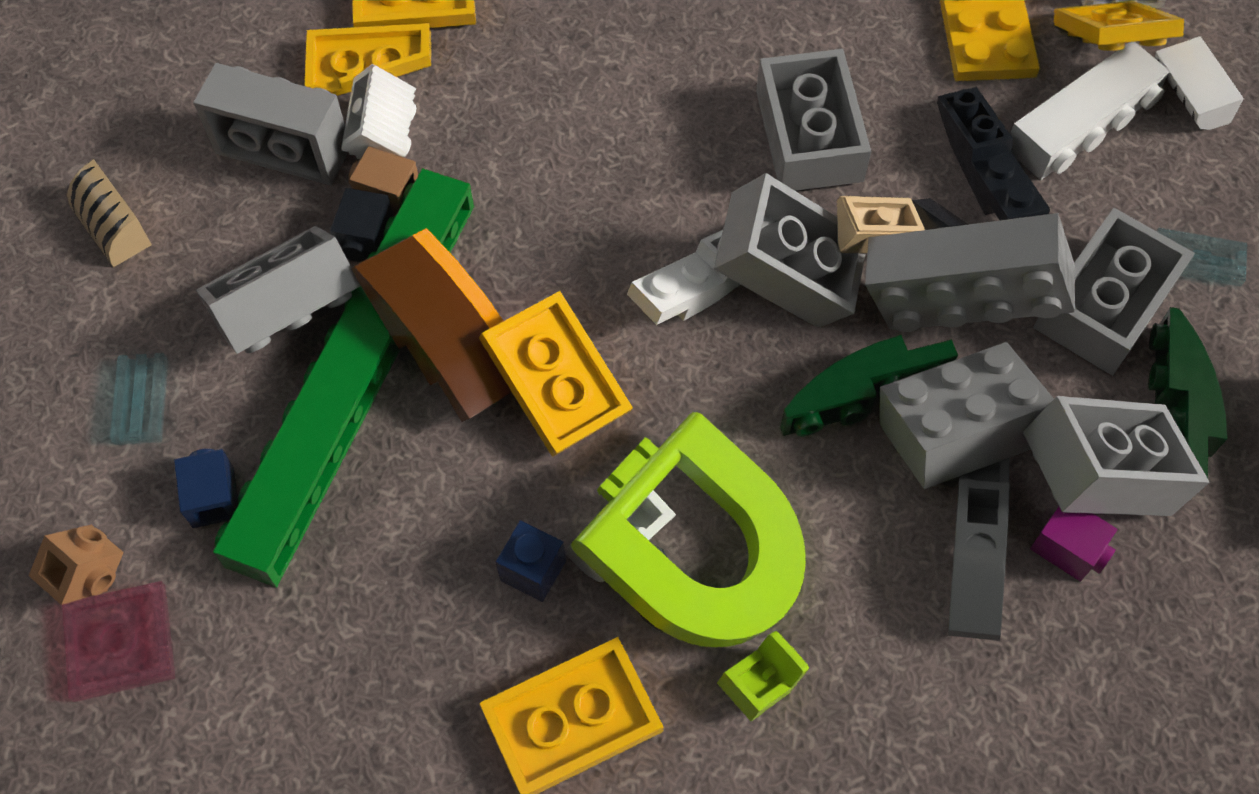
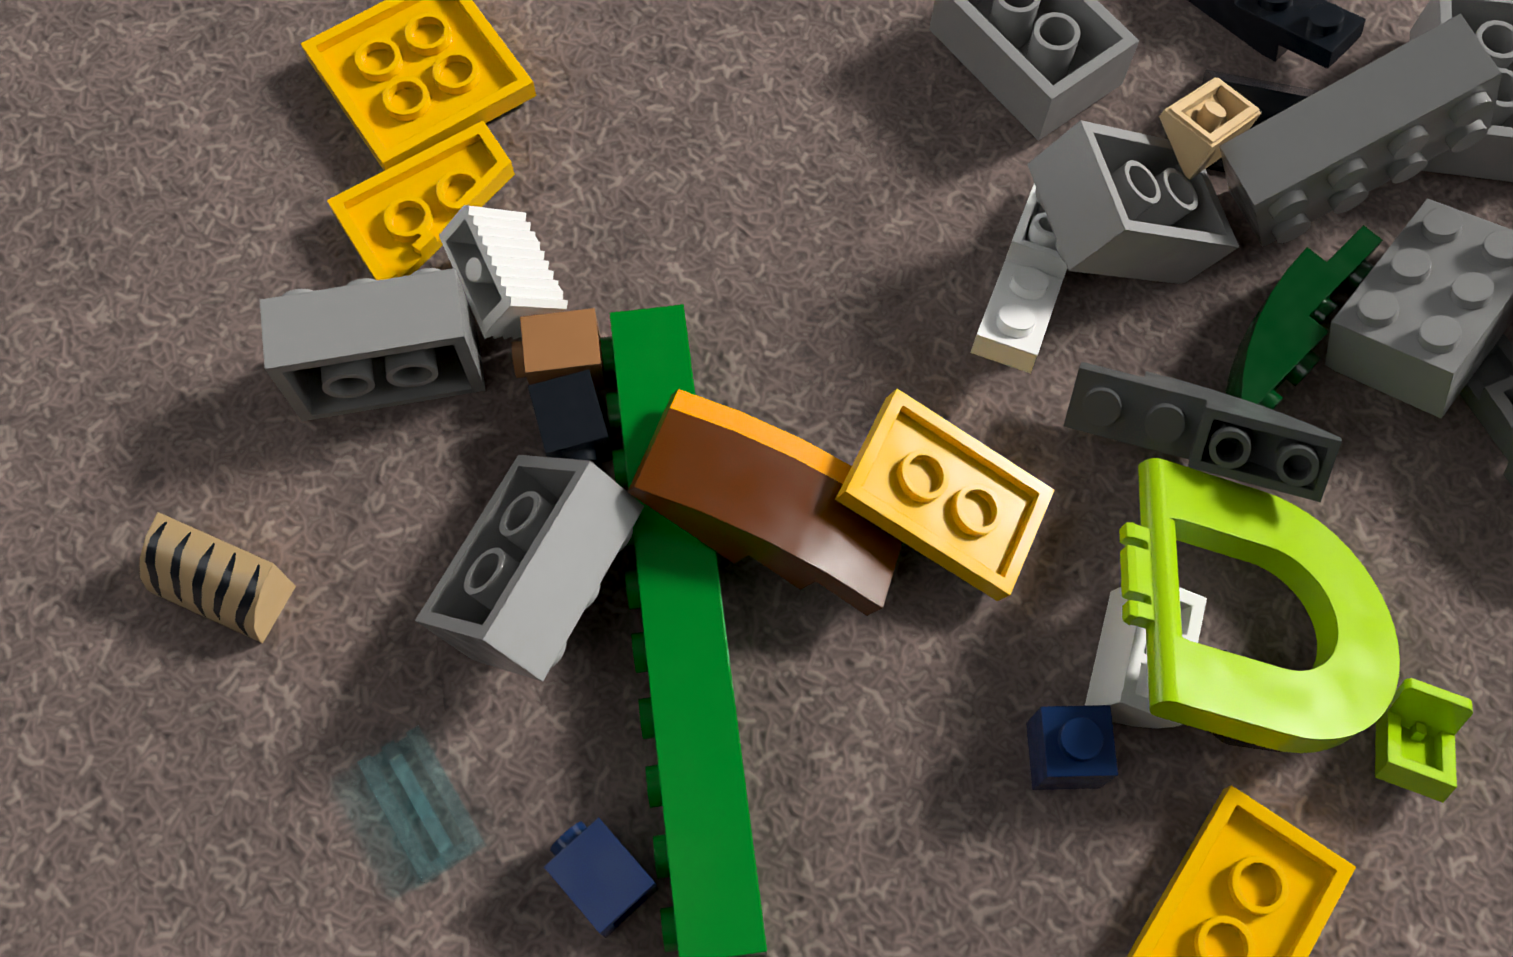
camera: 30 degrees left, 5 degrees up
(748, 409) = (1206, 427): none -> dark grey slope

